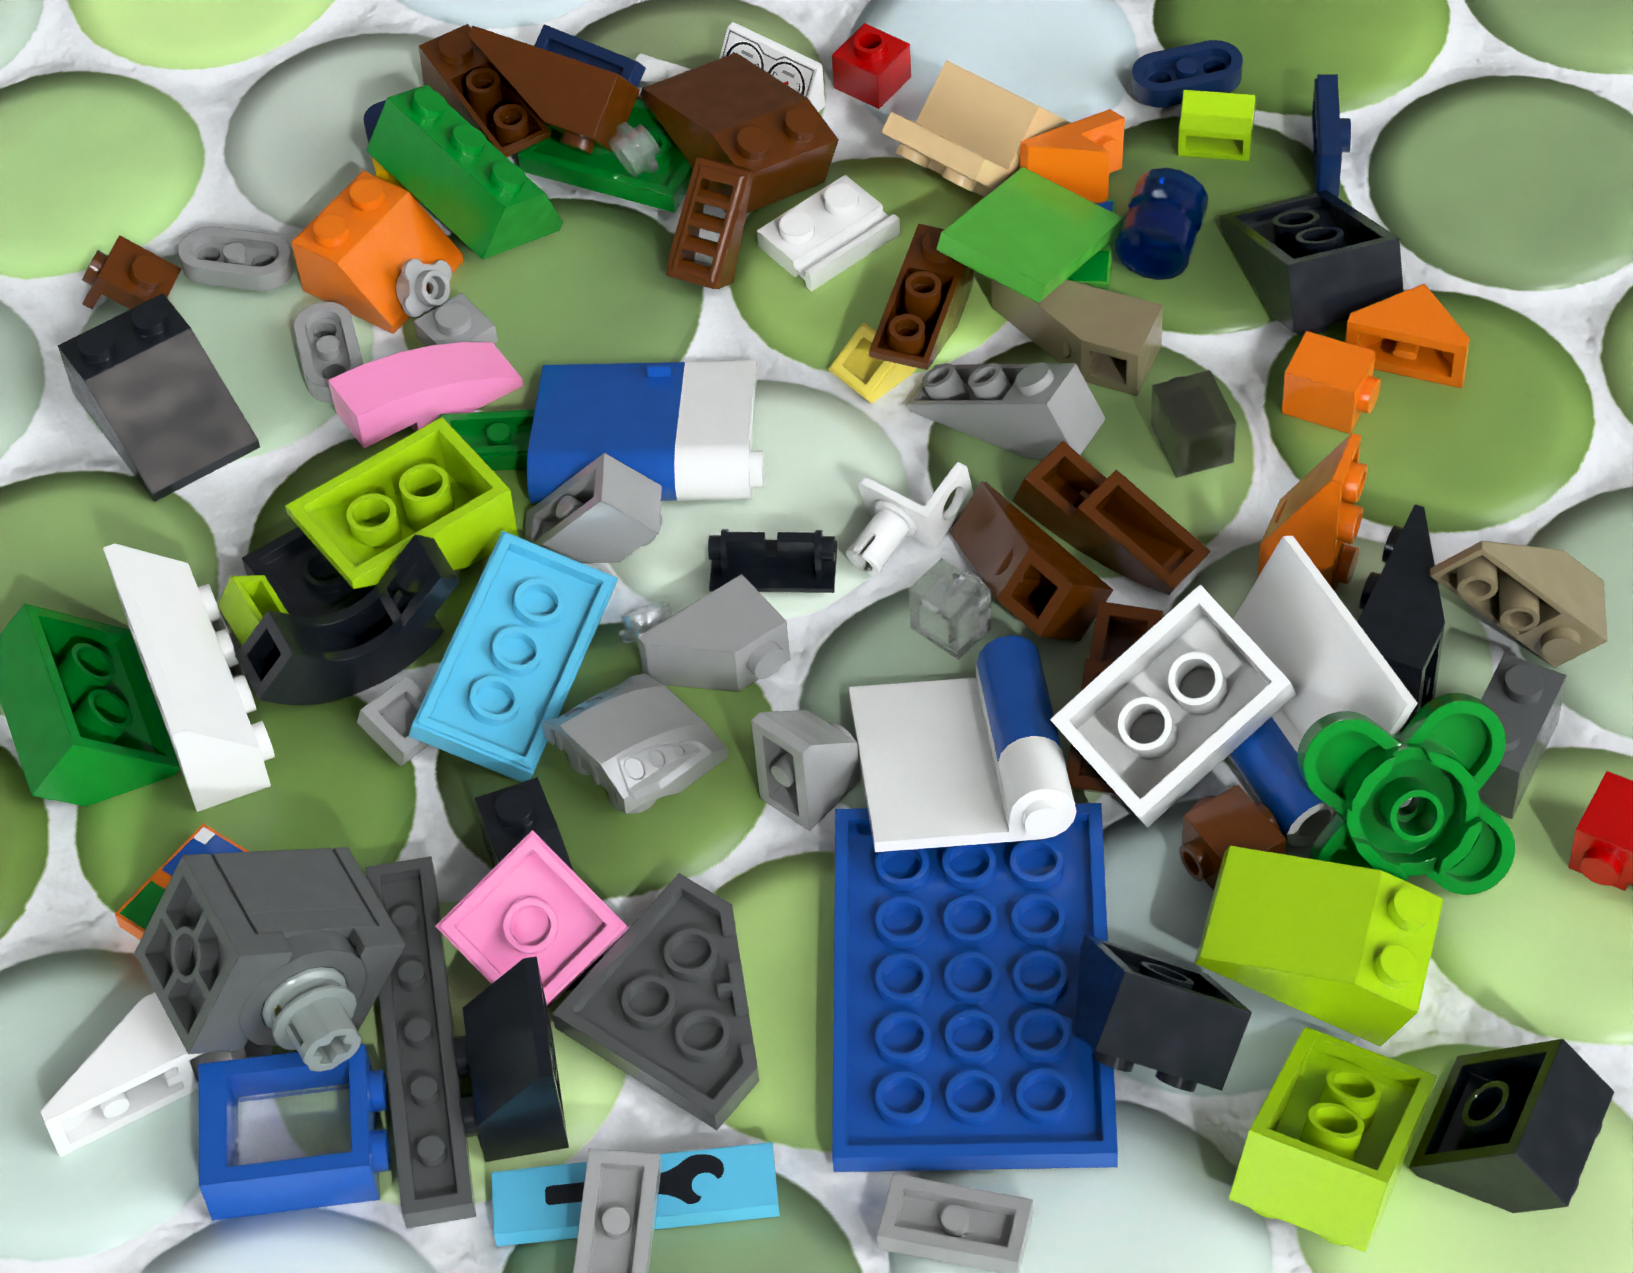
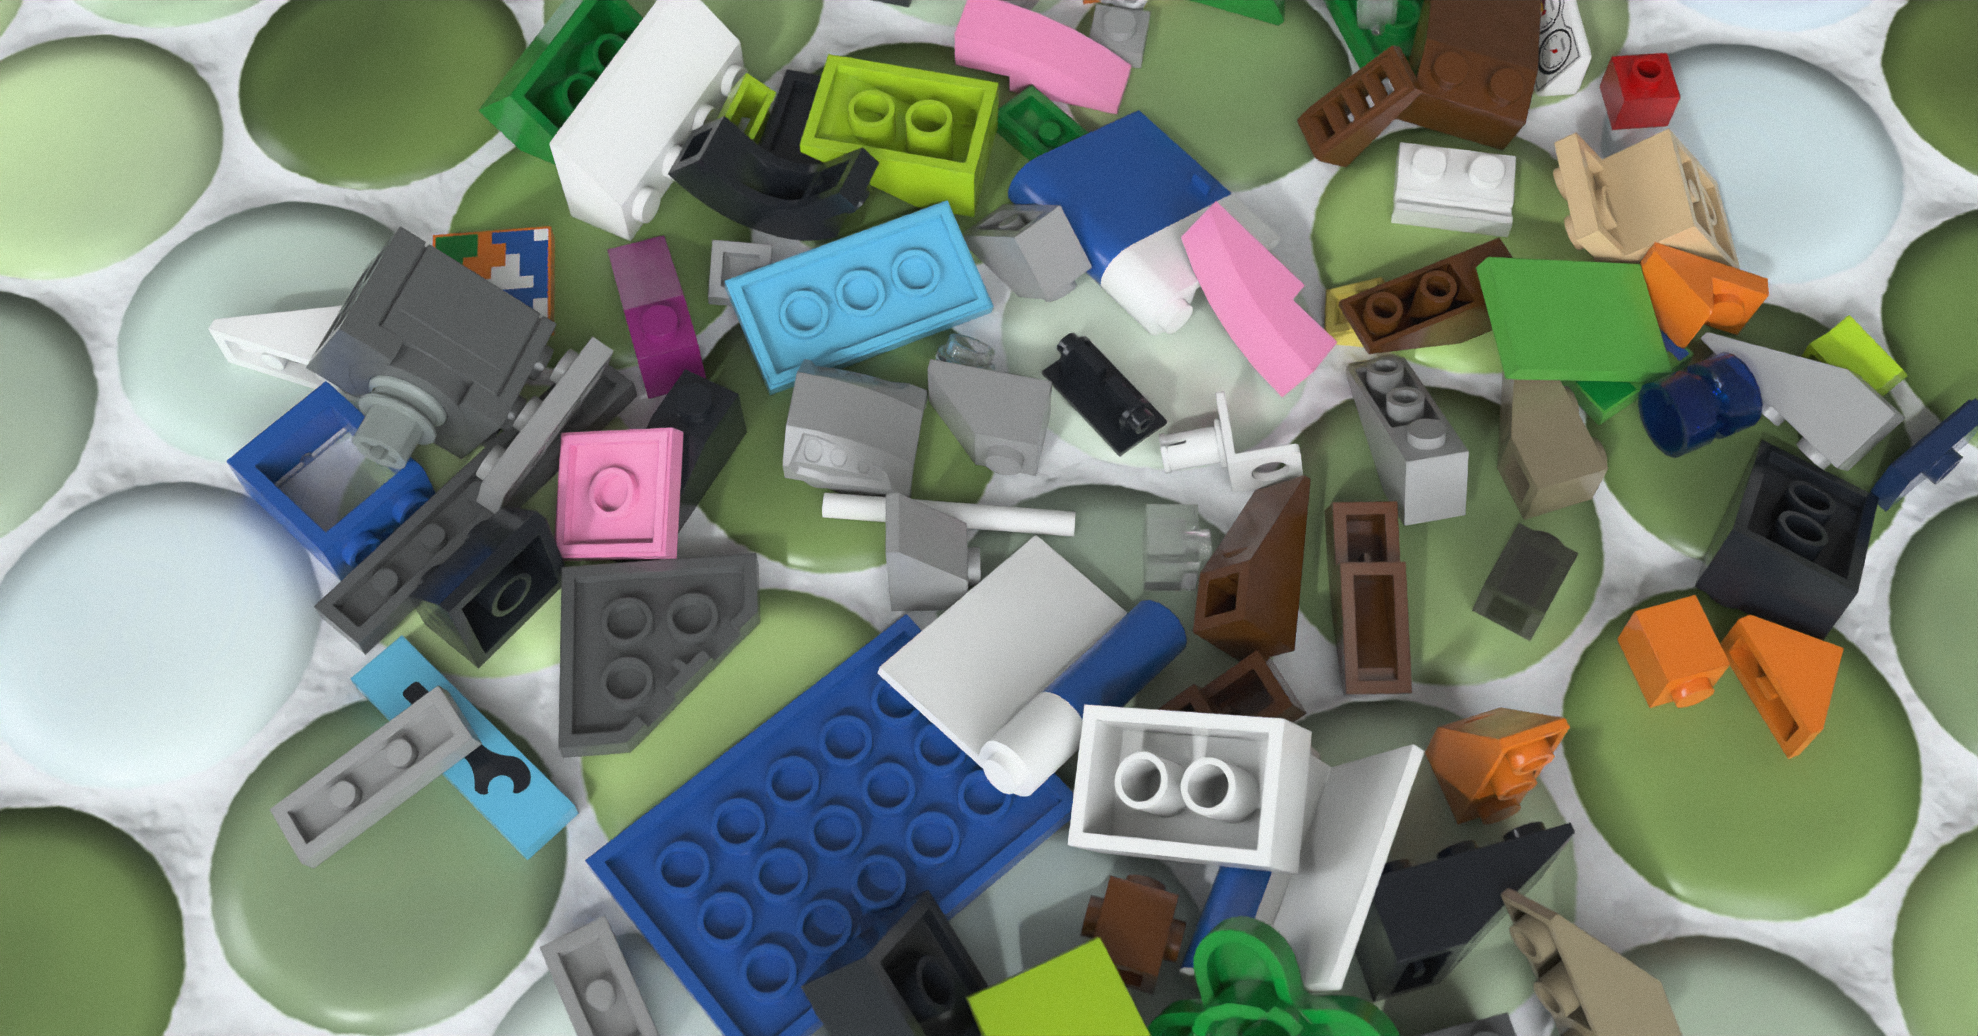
camera: 45 degrees right, 10 degrees up
(377, 802) = (656, 314): none -> magenta slope
(433, 962) = (541, 424): none -> light grey plate
(743, 754) = (975, 515): none -> white bar
(806, 403) = (1255, 300): none -> bright pink slope
(1200, 66) = (1880, 305): dark blue plate -> none
(1233, 155) = (1823, 402): none -> light grey slope

